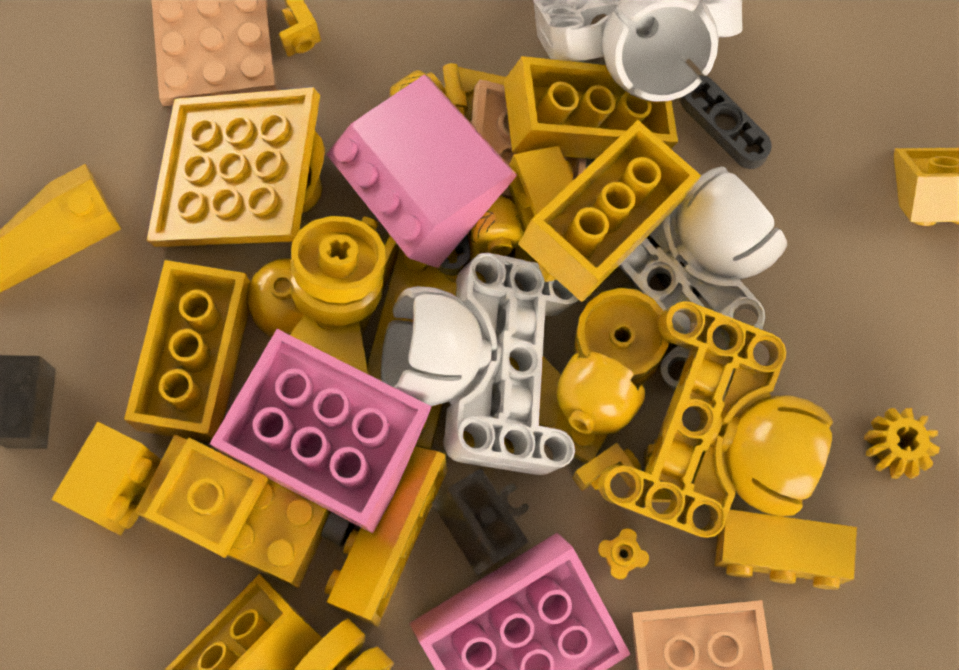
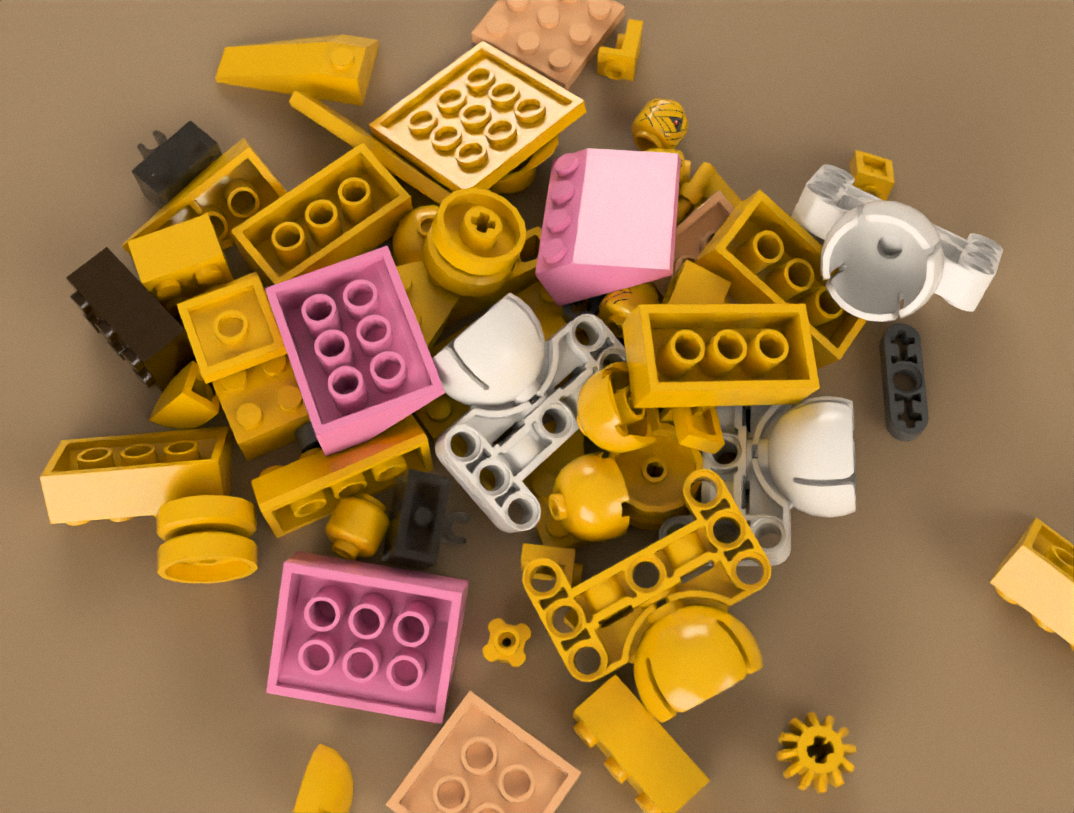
camera: 40 degrees right, 5 degrees down
(82, 386) = (227, 190): none -> yellow wedge
(109, 558) = (131, 319): none -> dark brown brick
(154, 257) = (355, 135): none -> yellow tile
(208, 583) = (186, 401): none -> yellow brick
(380, 62) = (660, 125): none -> yellow head
(437, 565) = (357, 526): none -> yellow head
(562, 319) = (608, 412): none -> yellow cylinder
(631, 279) = (695, 427): none -> yellow bracket

